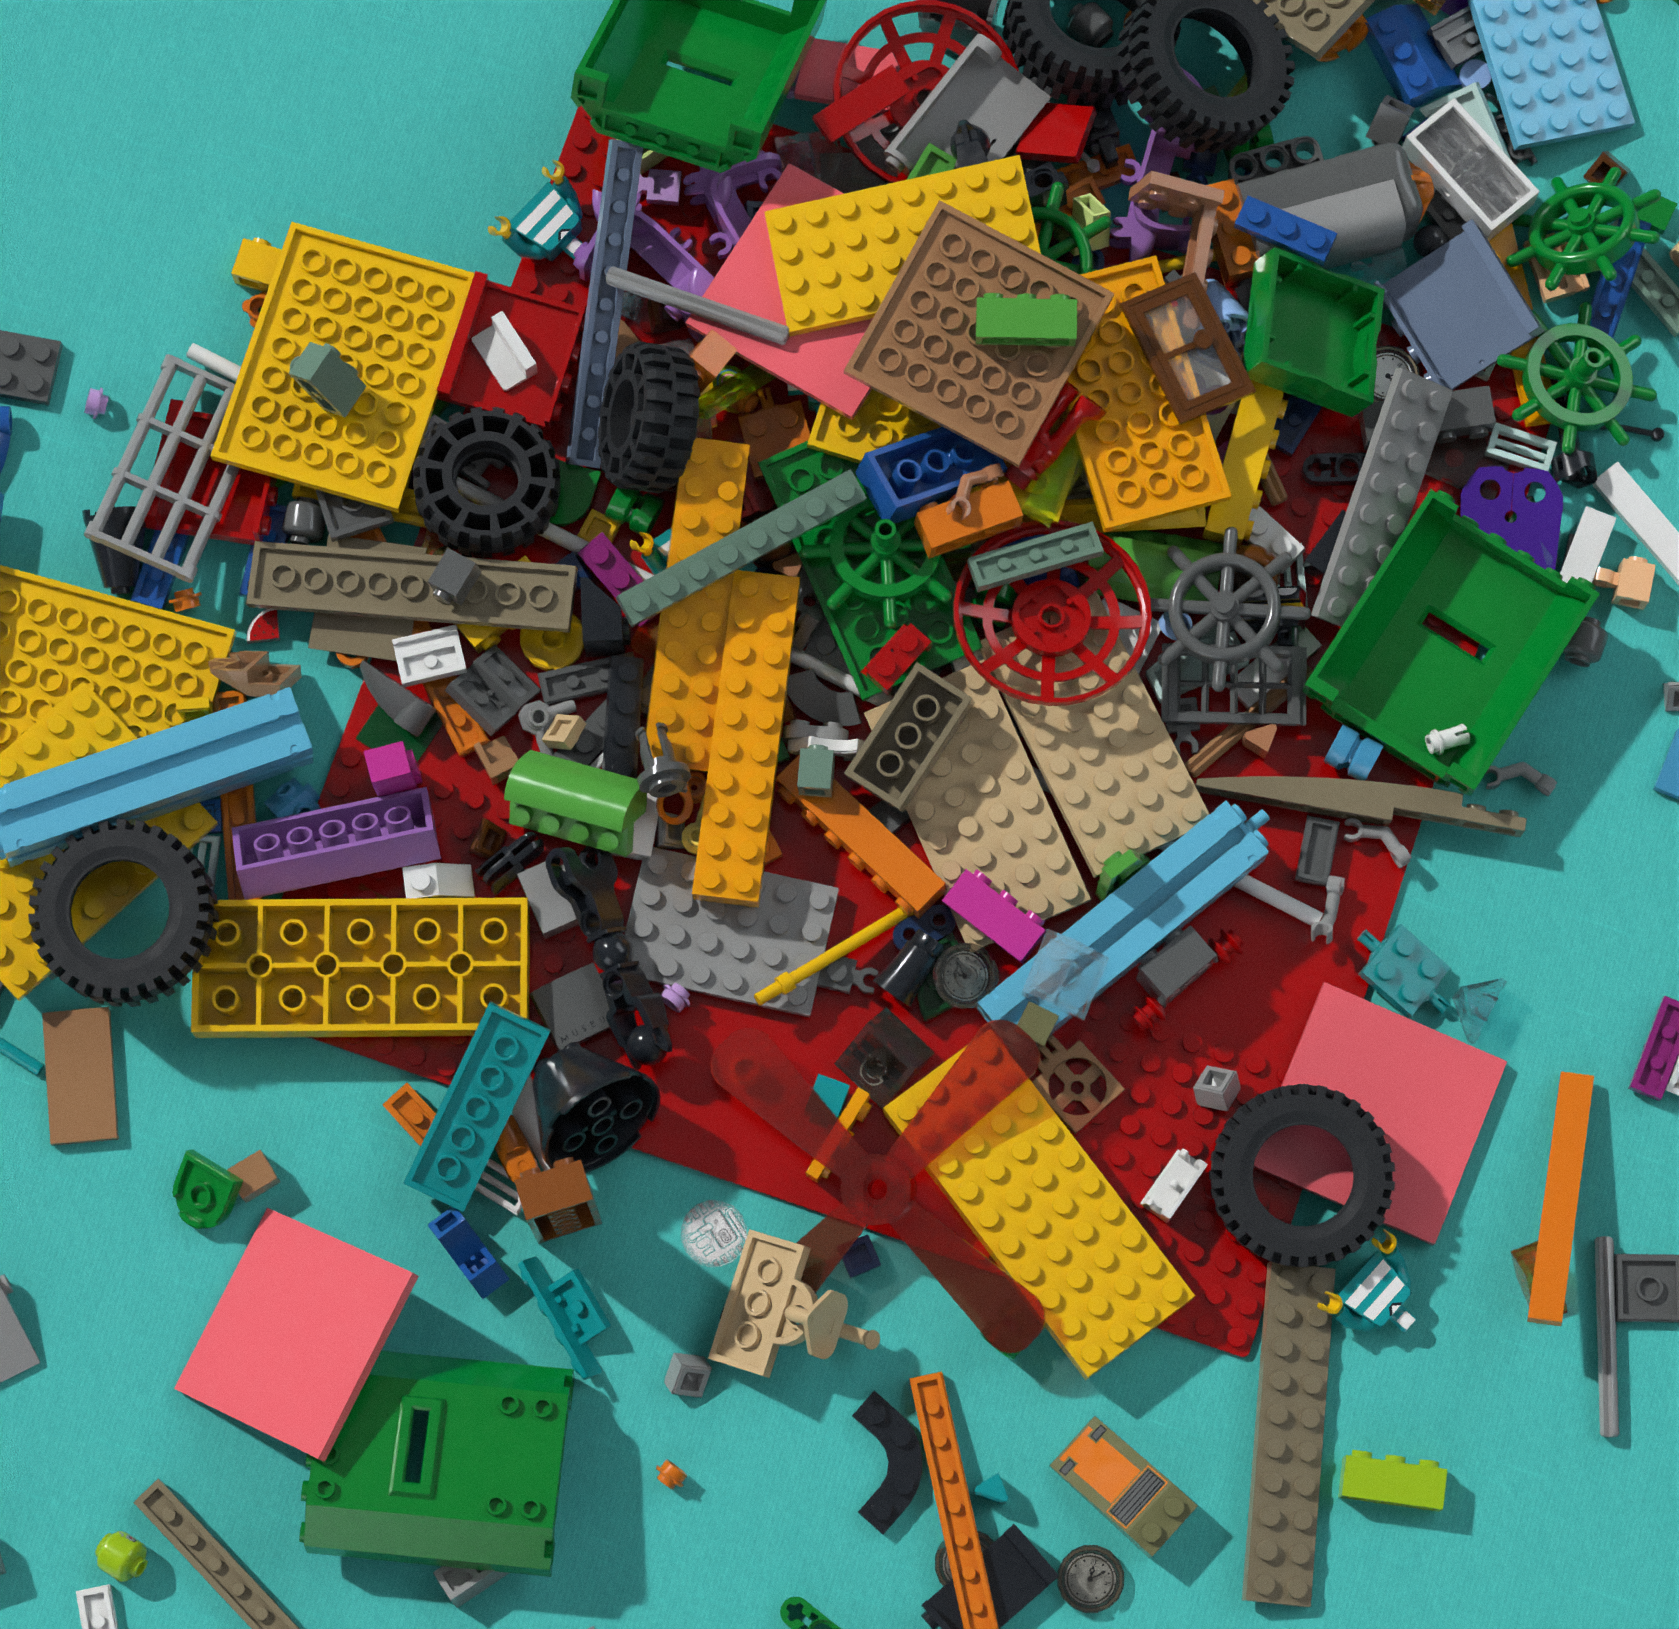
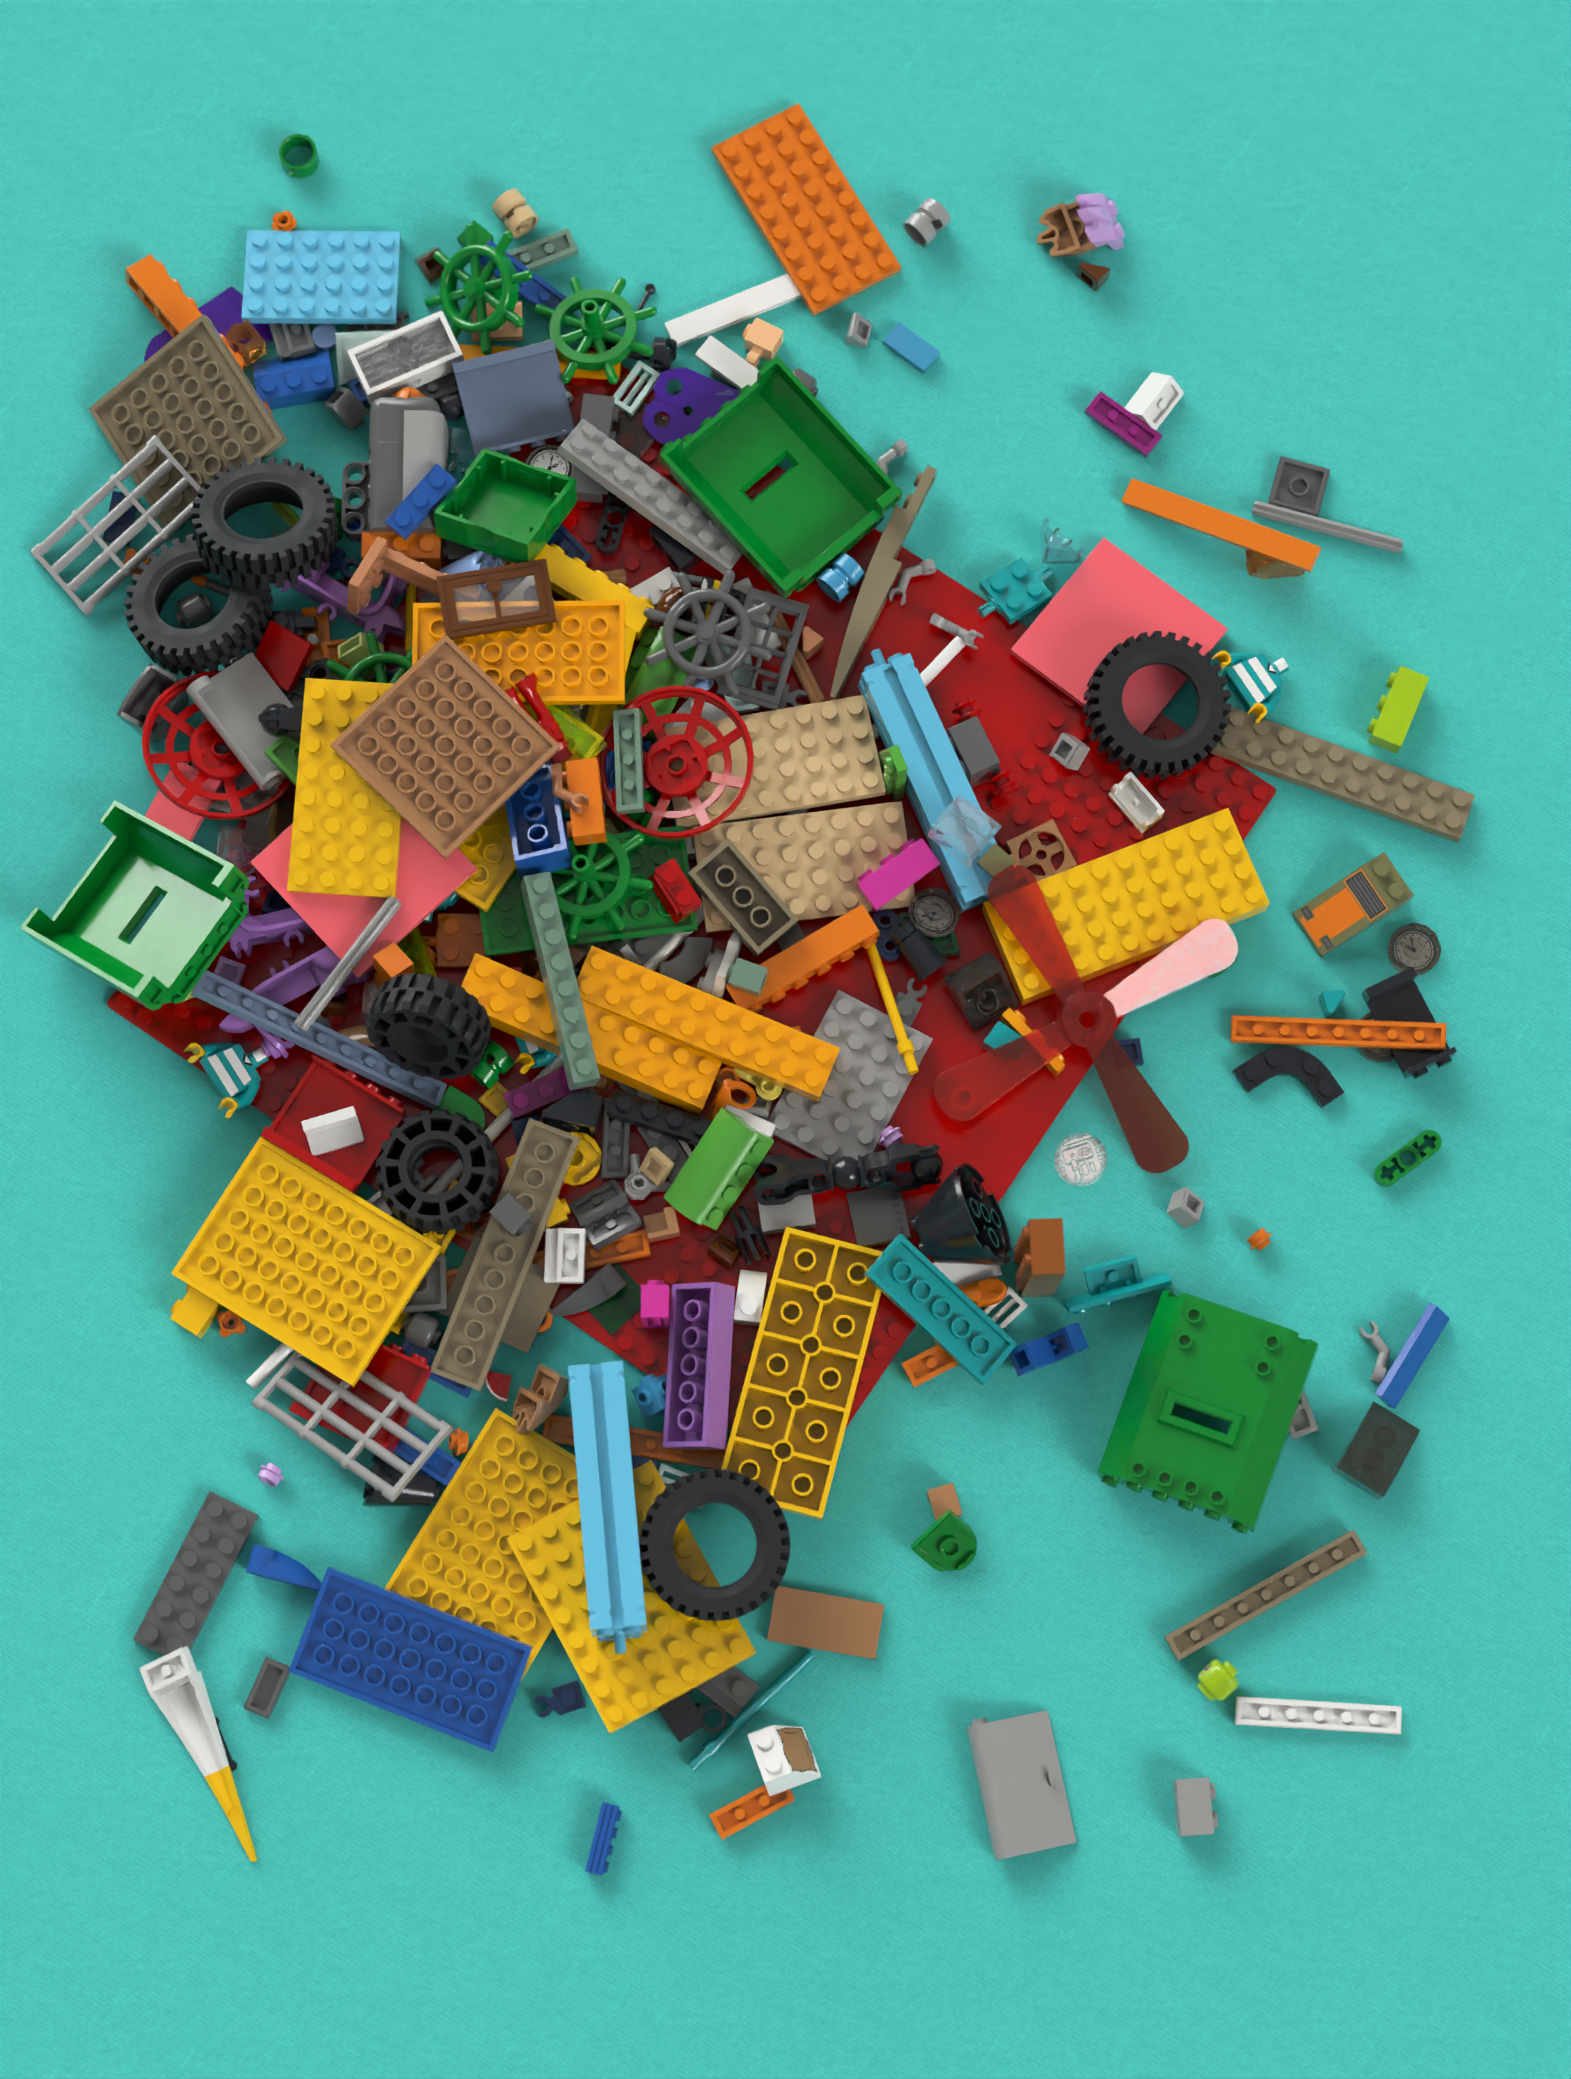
camera: 75 degrees left, 0 degrees up
(194, 707) = (553, 1453): yellow tile -> none
(296, 1333) = (1084, 1494): coral tile -> none
(327, 378) = (319, 1272): sand green brick -> none
(662, 774) = (722, 1091): dark grey piece -> none
(768, 1304) = (1156, 1130): tan plate -> none
(860, 104) = (216, 795): red tile -> none
(1026, 320) = (449, 704): bright green brick -> none
(1317, 851) = (906, 627): dark grey tile -> none
(1446, 739) = (850, 511): white pin -> none

